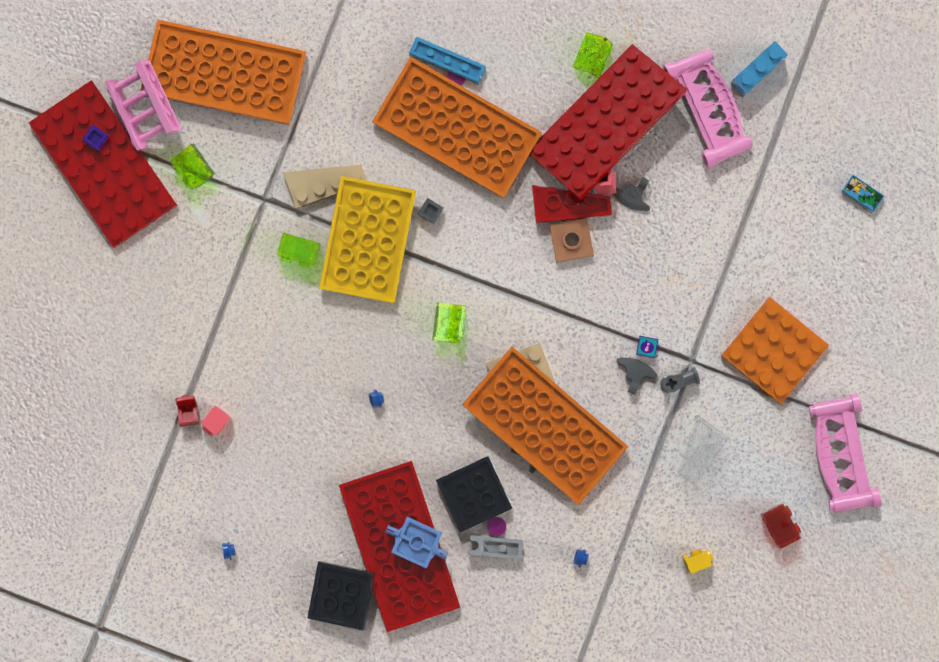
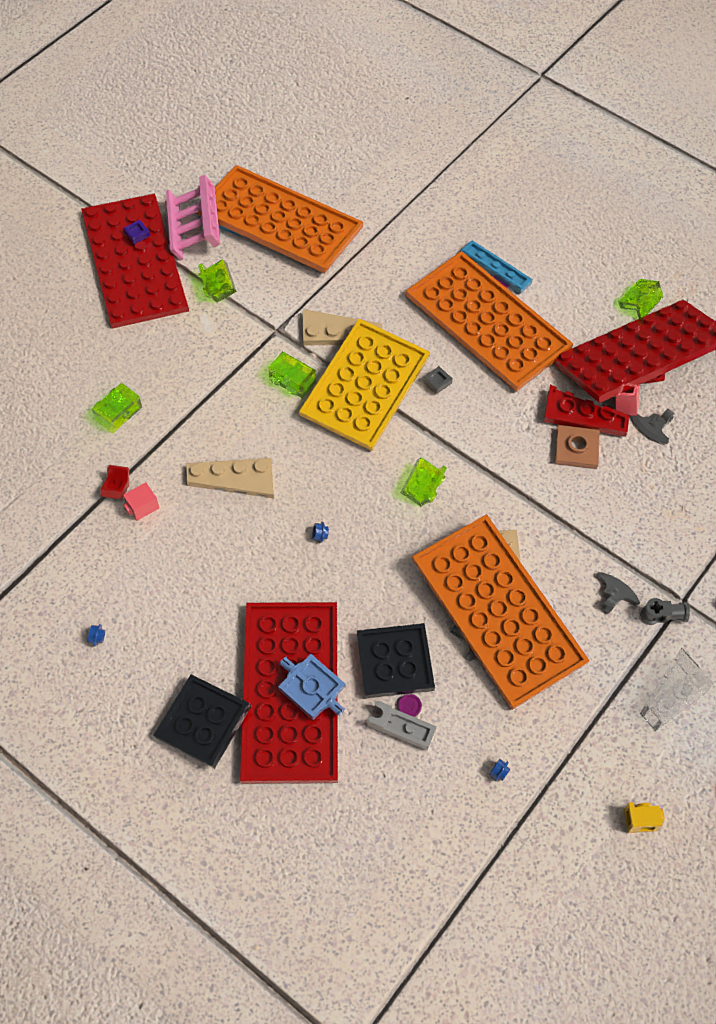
camera: 20 degrees right, 25 degrees down
(156, 335) = (117, 407): none -> clear neon green brick
(288, 366) = (247, 476): none -> tan wing
(647, 346) = (634, 569): tile -> none

